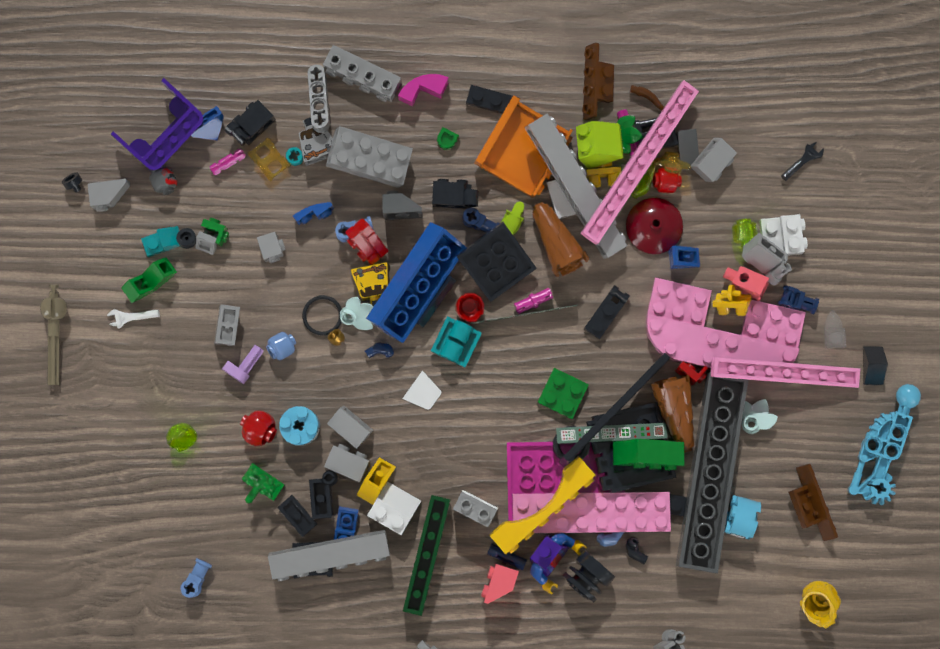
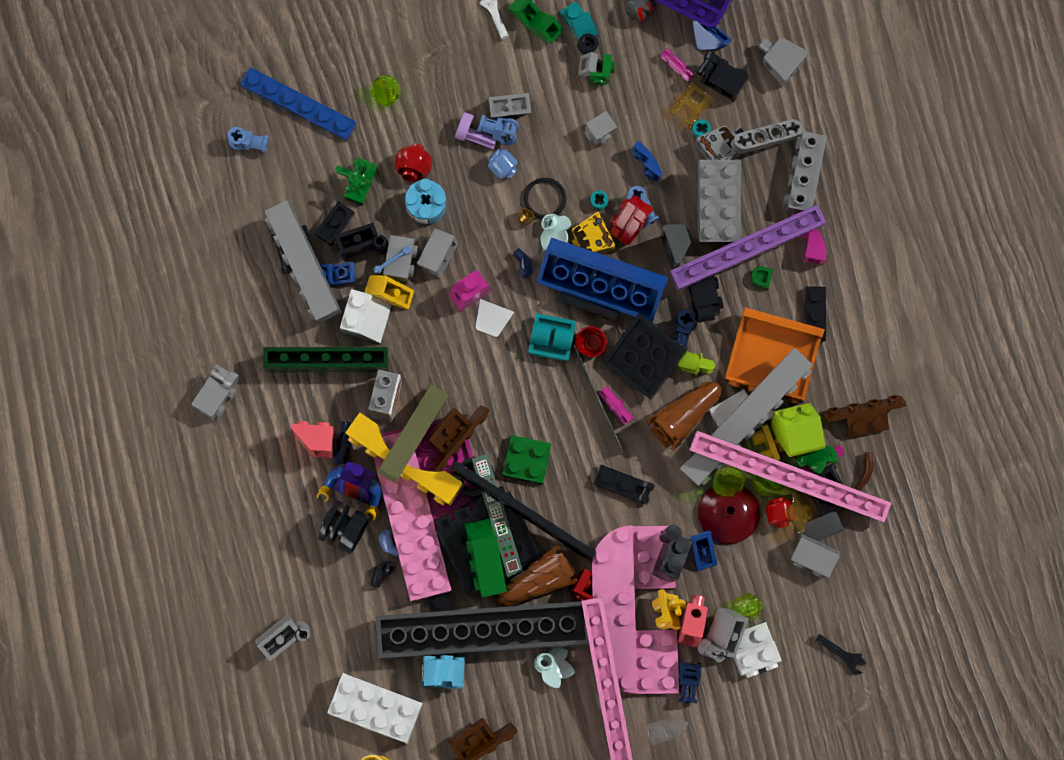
camera: 70 degrees right, 5 degrees down
(171, 522) = (298, 103): none -> blue plate
(247, 340) = (499, 129): none -> medium blue connector
(248, 65) = (782, 58): none -> light grey torso
(336, 272) = (605, 200): none -> teal bush
(343, 455) = (406, 251): none -> medium blue hinge
(394, 406) = (469, 290): none -> dark pink torso
(420, 143) = (747, 247): none -> medium lavender plate
(520, 491) = (412, 433): none -> olive tile
(526, 454) = (452, 433): none -> reddish brown bracket
(629, 218) = (728, 480): none -> clear neon green hair
(685, 285) = (672, 554): none -> black hinge
(759, 587) = (375, 708): none -> white brick

